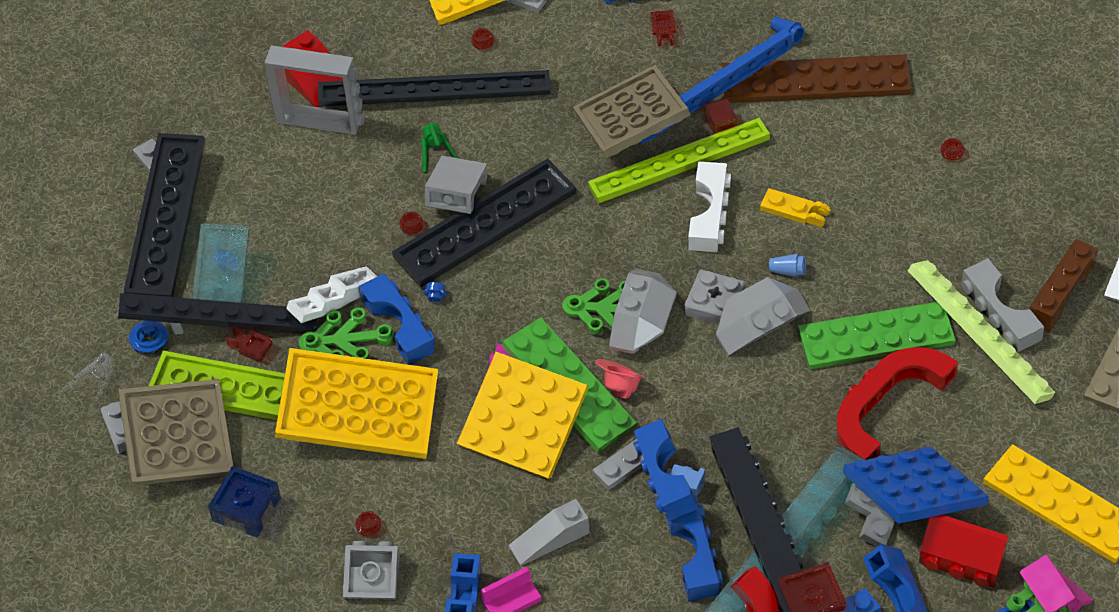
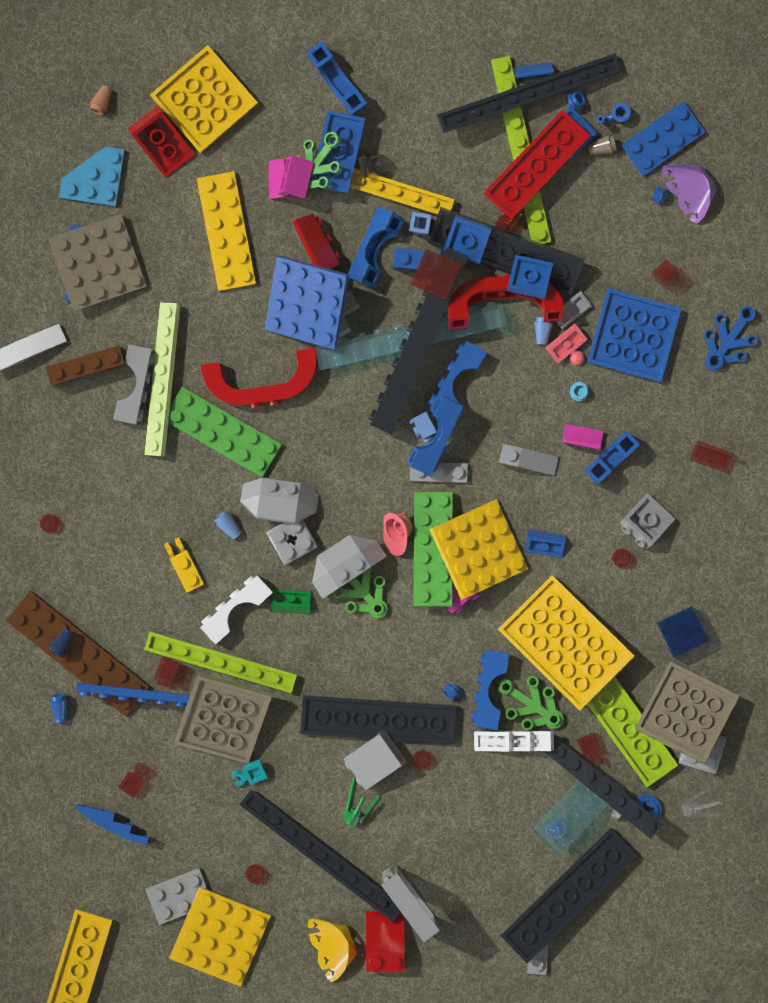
camera: 140 degrees left, 35 degrees up
(355, 42) = (334, 944): none -> yellow piece
(461, 481) = (545, 543): none -> blue slope
(562, 104) = (252, 772): none -> teal plate
(664, 254) = (291, 601): none -> green slope
(838, 64) = (61, 643): none -> dark blue cone

